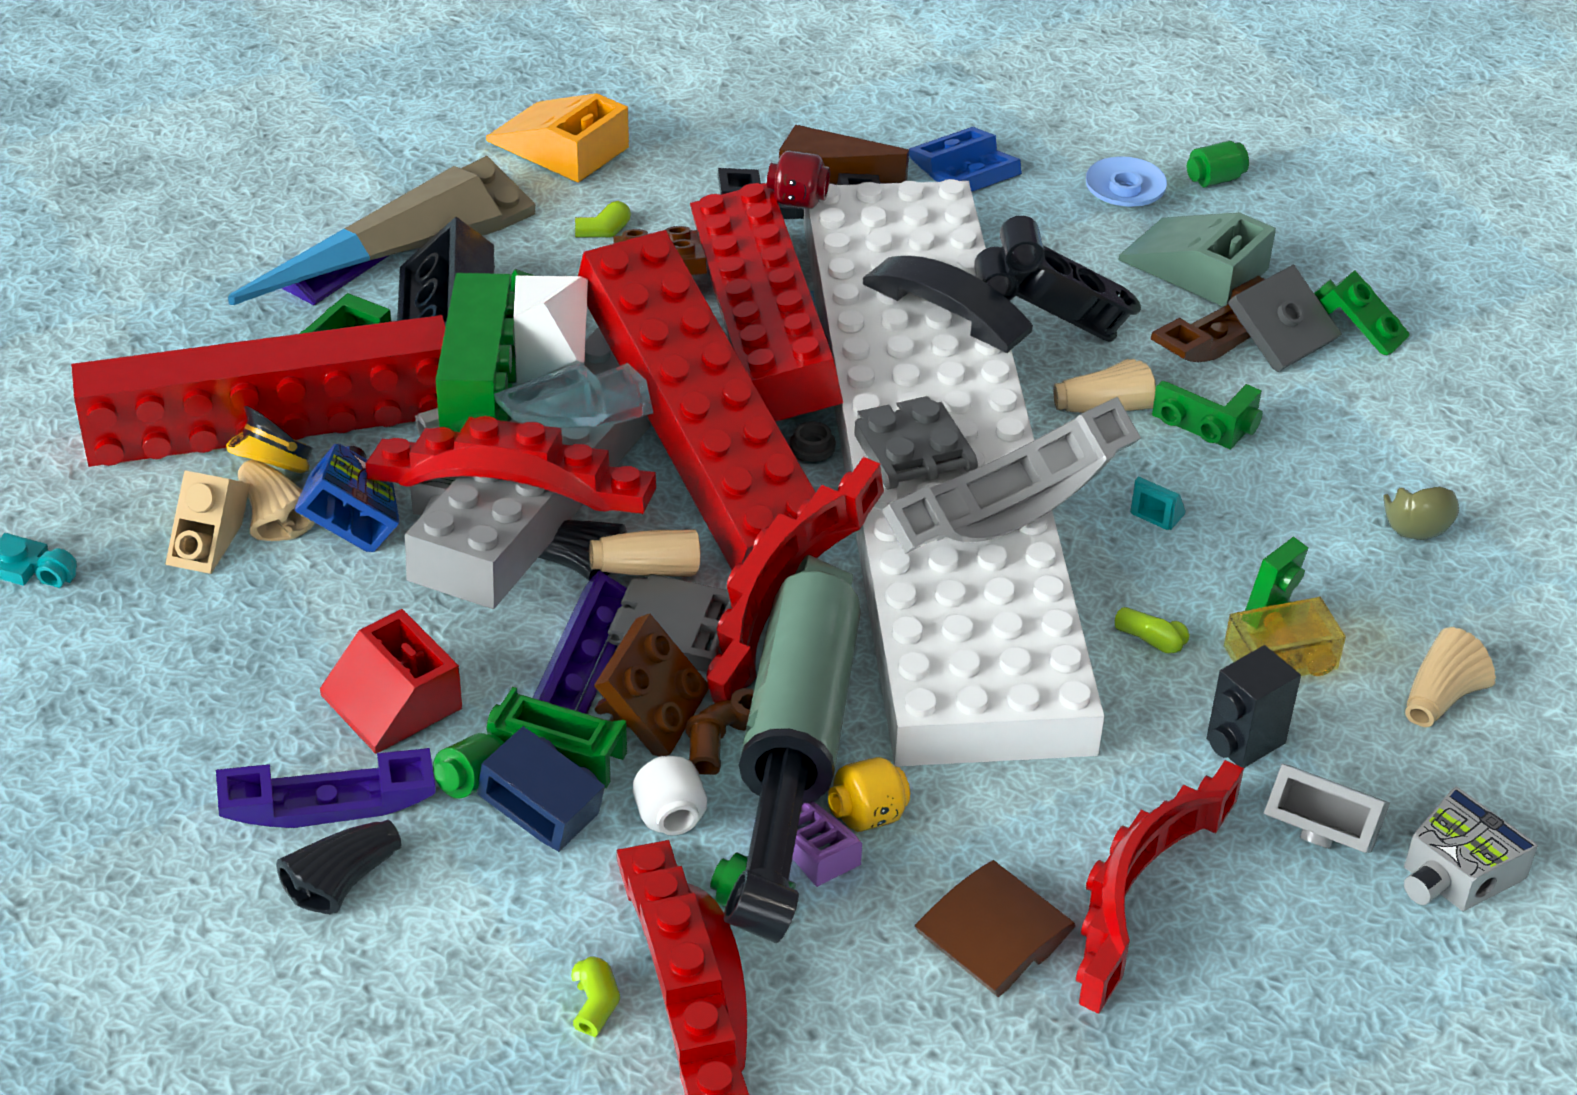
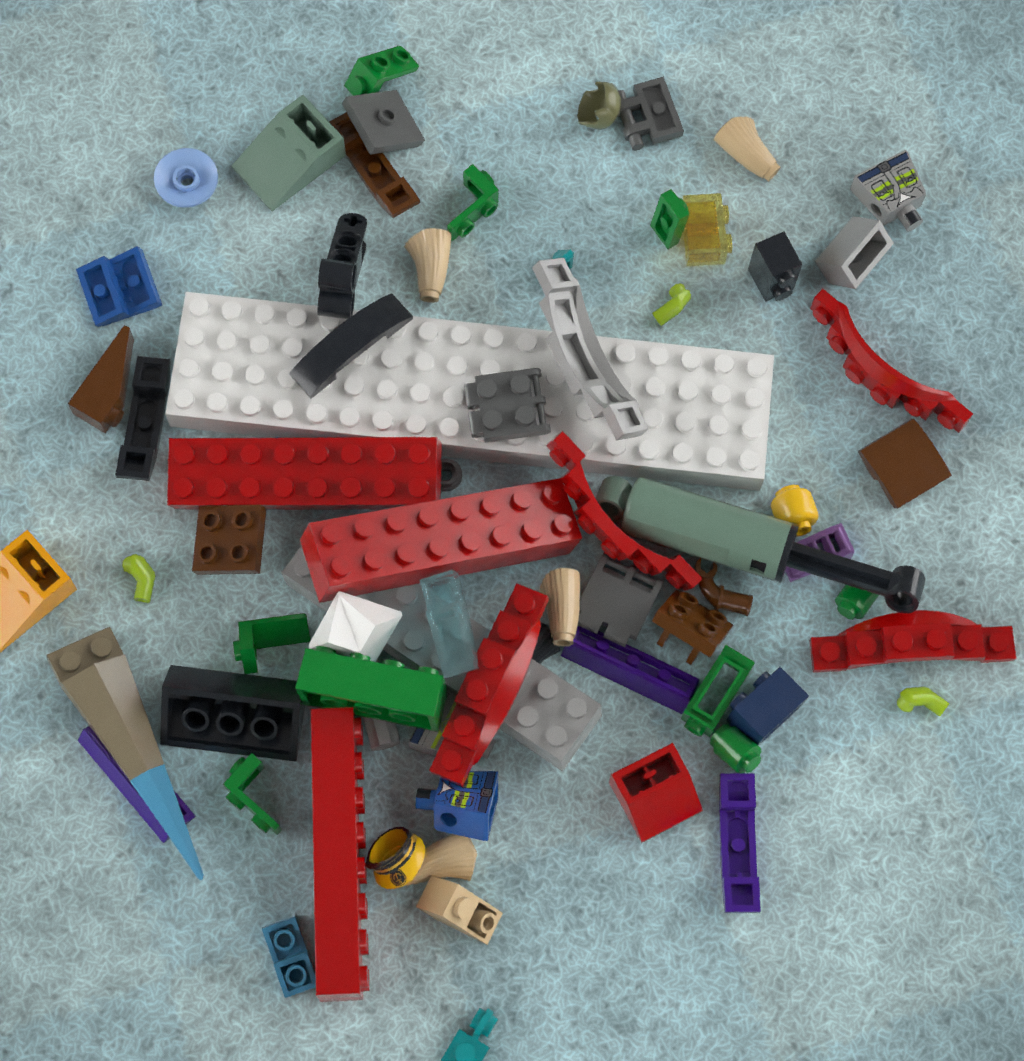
camera: 80 degrees left, 30 degrees up
(327, 869) = (804, 846): black piece -> none
(669, 795) = (778, 630): white head -> none
(799, 179) = (188, 415): dark red head -> none
(1217, 163) = (176, 105): green brick -> none
(1449, 576) = (658, 112): none -> dark grey plate

